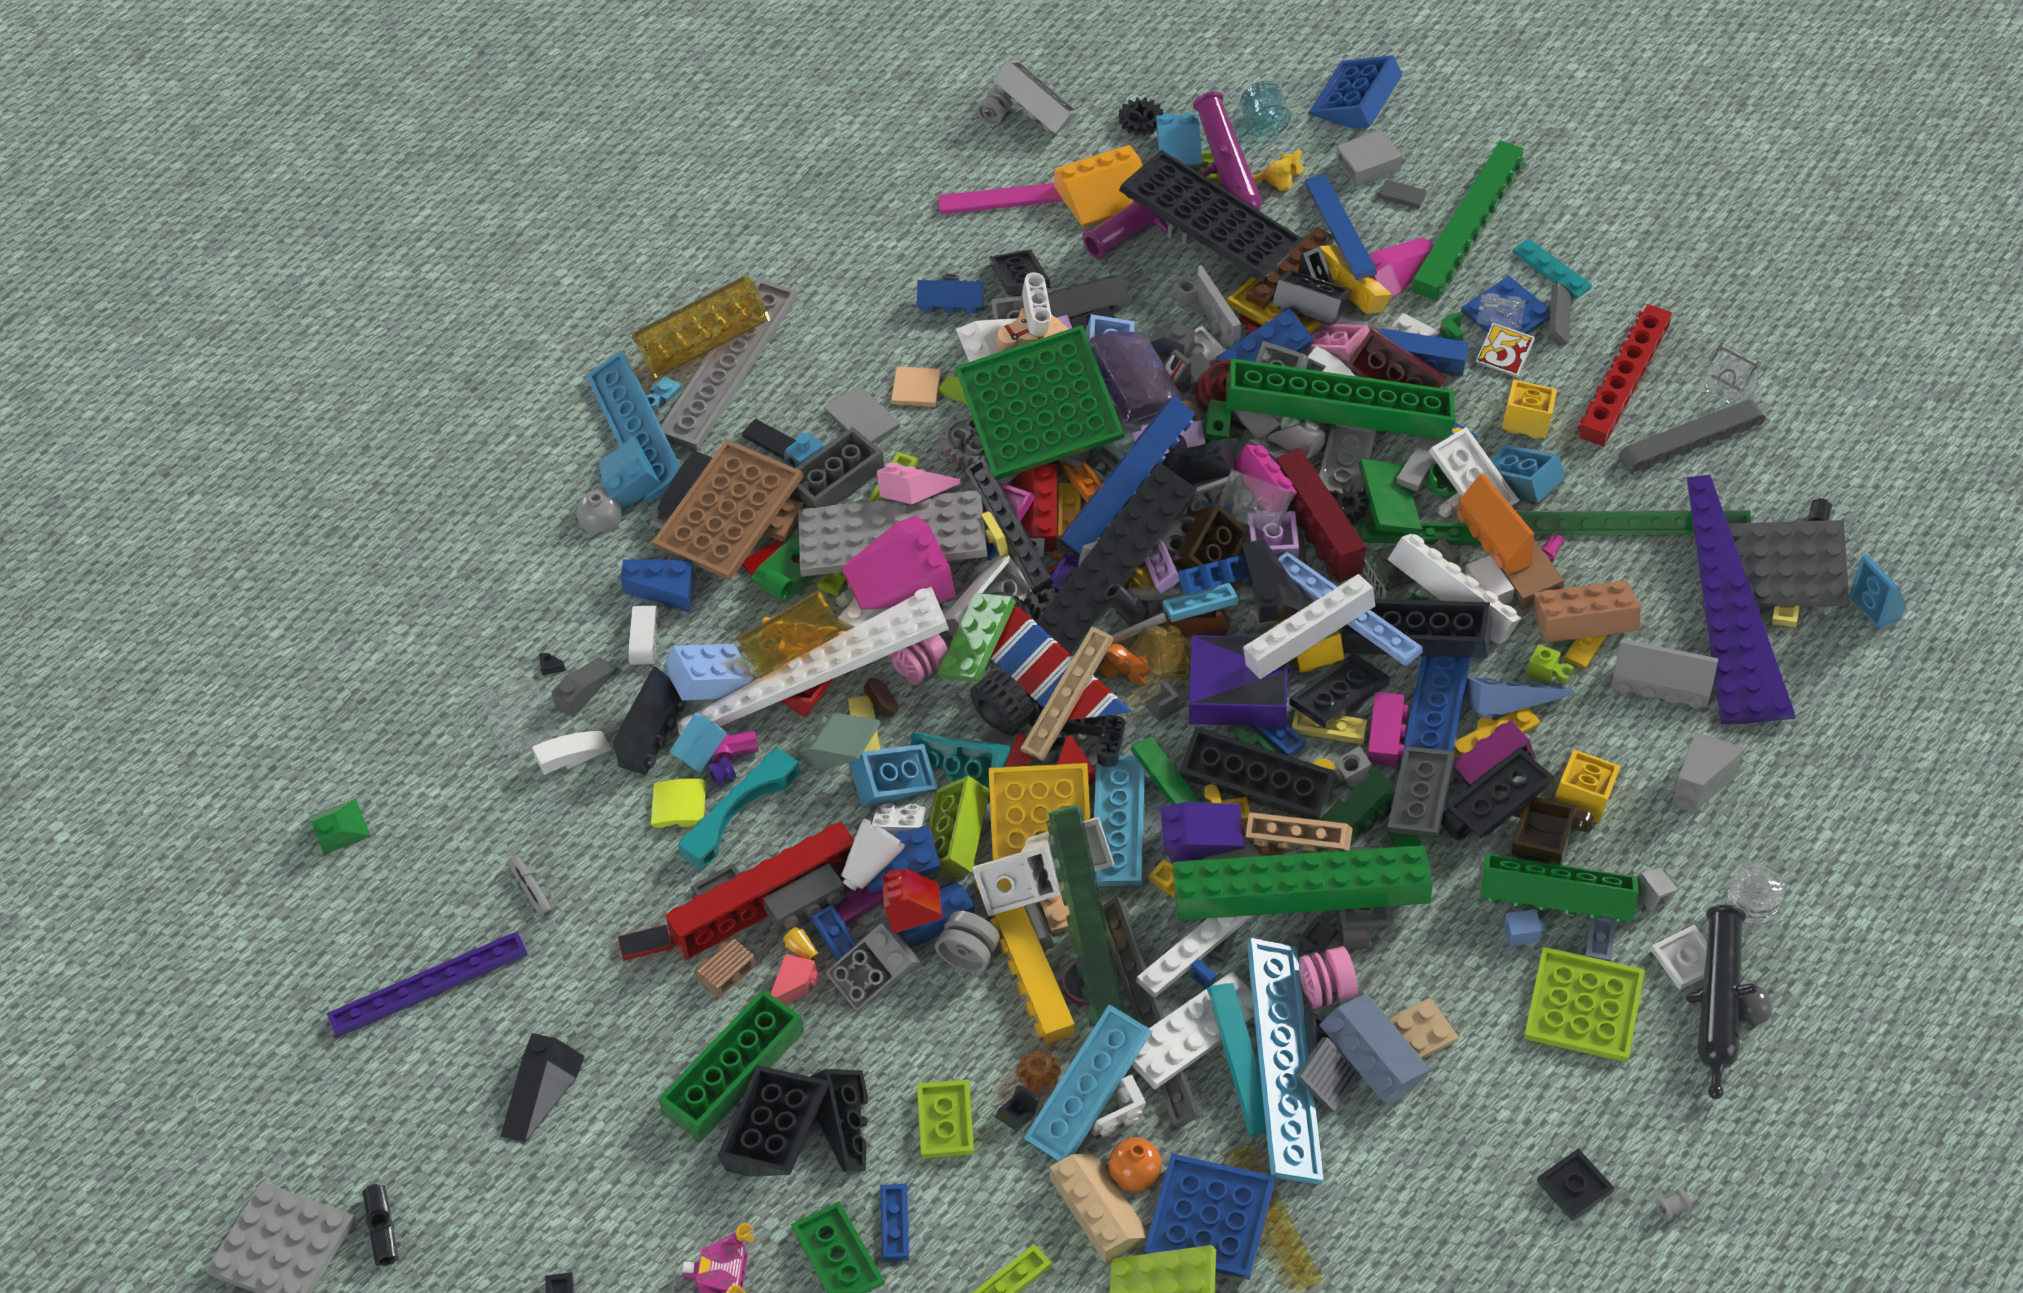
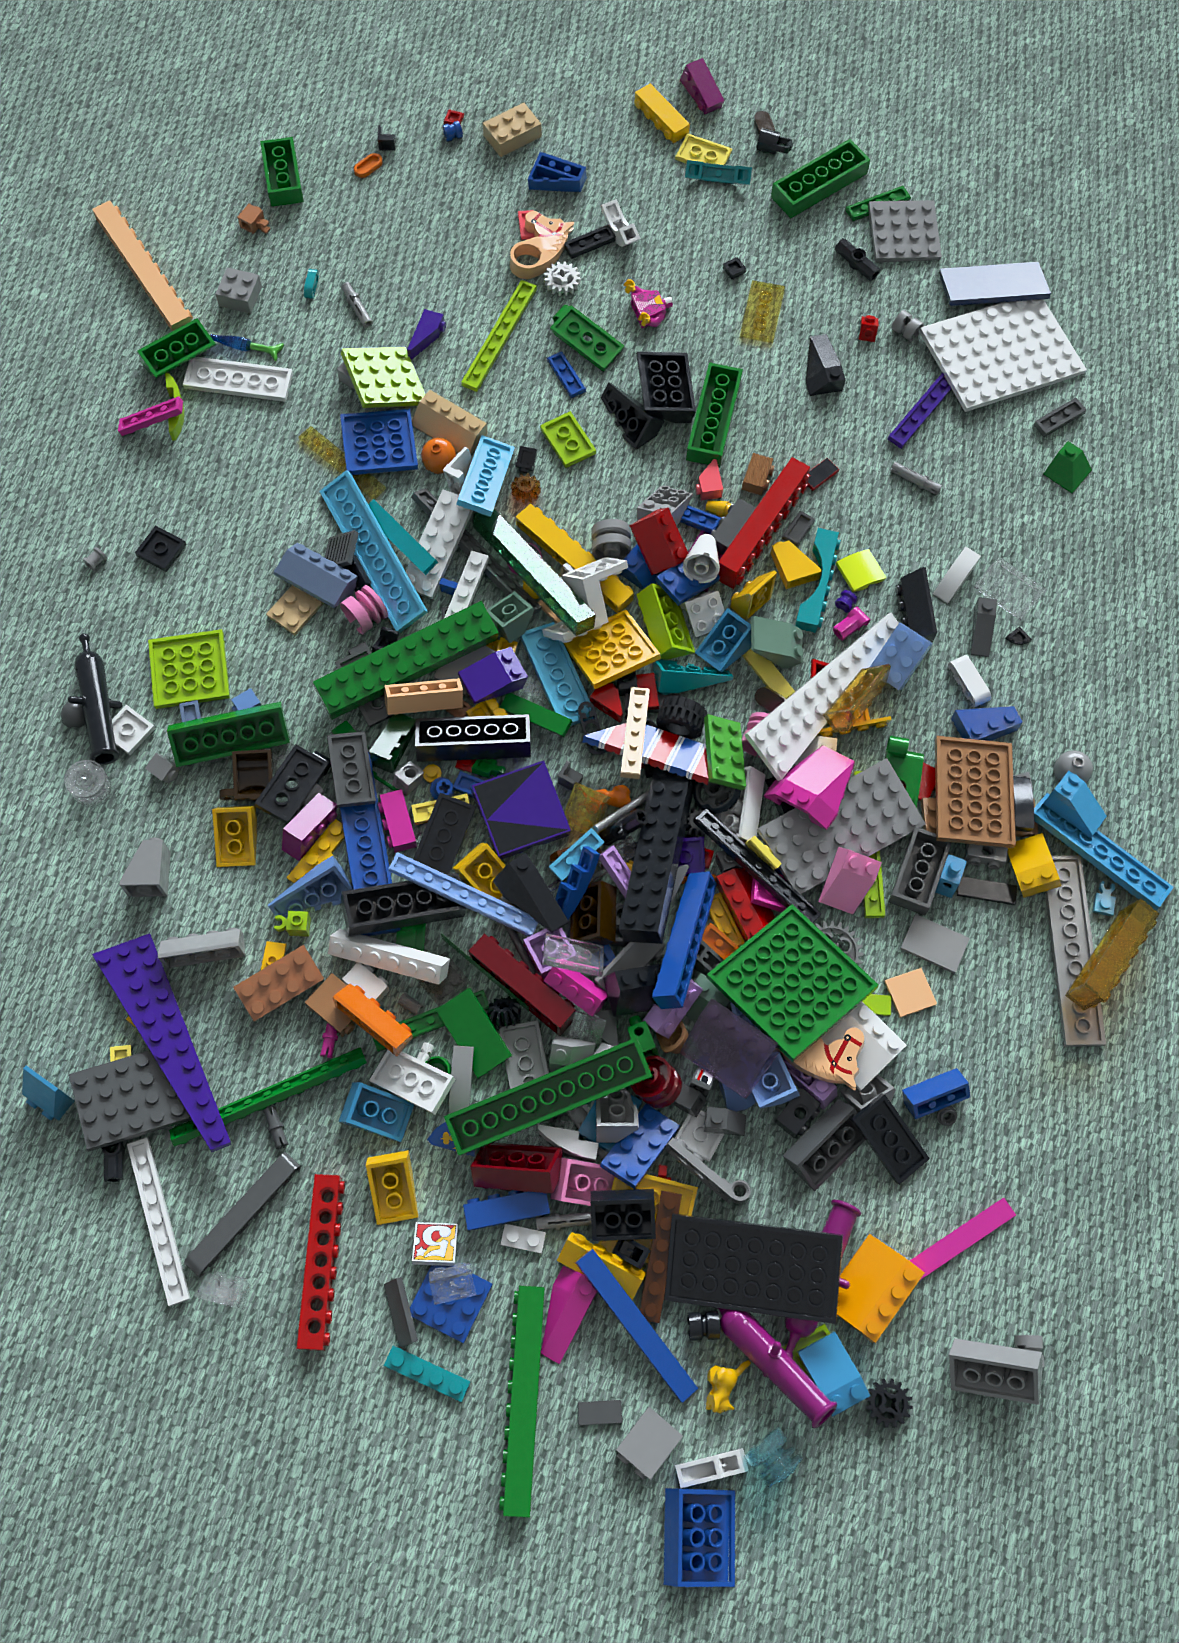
camera: 150 degrees right, 15 degrees up
(226, 1106) = (994, 283): none -> tile
(293, 1009) = (1001, 352): none -> white plate
(294, 891) = (1060, 417): none -> dark grey plate
(389, 1089) = (907, 325): none -> light grey wheel
(438, 1116) = (868, 328): none -> red bracket
(563, 1206) = (762, 311): none -> clear yellow tile
(698, 742) = (871, 609): medium azure panel -> none
(714, 425) = (1033, 866): none -> yellow slope
(756, 832) = (793, 565): none -> yellow slope
(831, 799) = (753, 595): none -> yellow slope
(1036, 304) = (849, 1080): white beam -> none
(1144, 894) = (511, 616): none -> sand green slope
(1278, 211) = (704, 1326): none -> black wheel
(1309, 626) = (480, 852): white brick -> none
(1318, 745) = (441, 785): none -> blue piece
(1320, 127) = (711, 1468): none -> white slope
(1451, 327) = (489, 1243): green bracket -> none
(1633, 494) = (275, 1127): none -> dark grey pin
(1782, 455) = (158, 1222): none -> white plate

